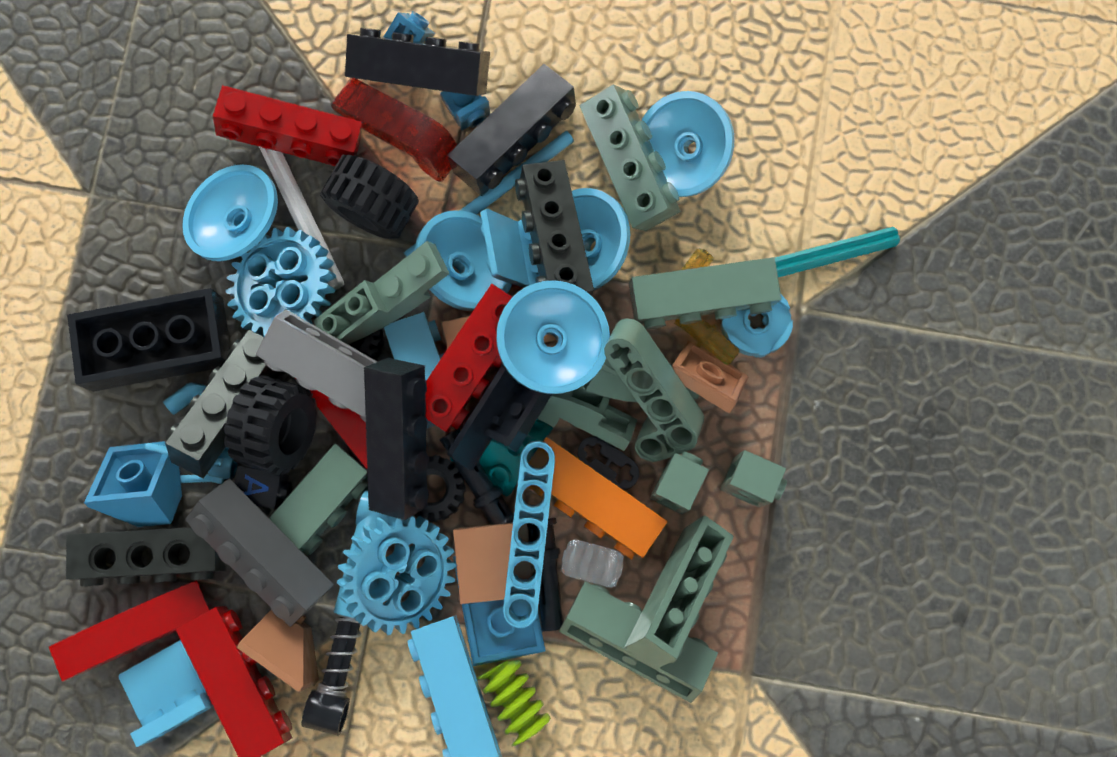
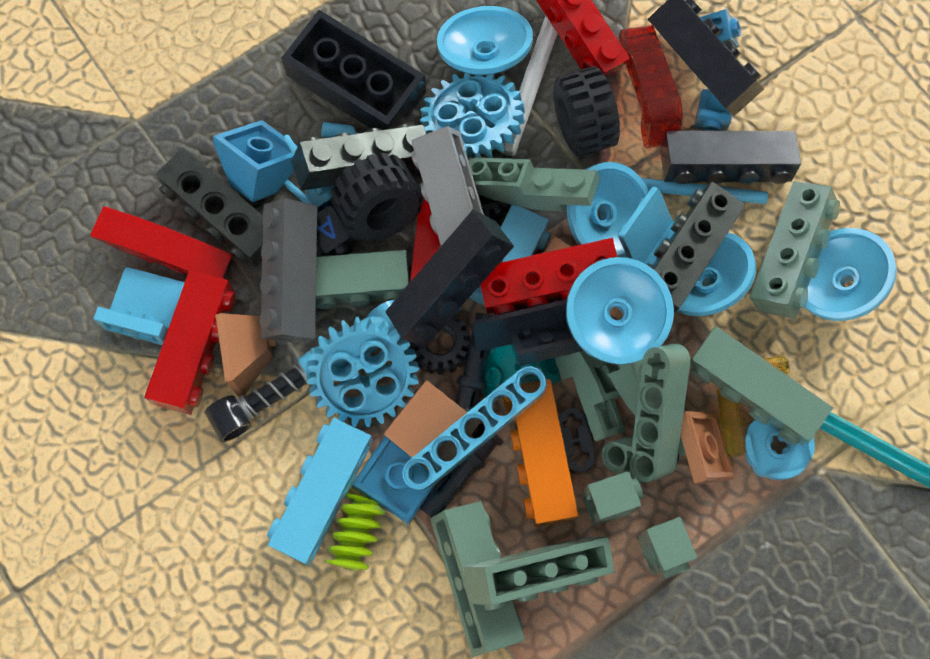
camera: 45 degrees right, 5 degrees down
(592, 563) = (498, 494): clear gear -> none

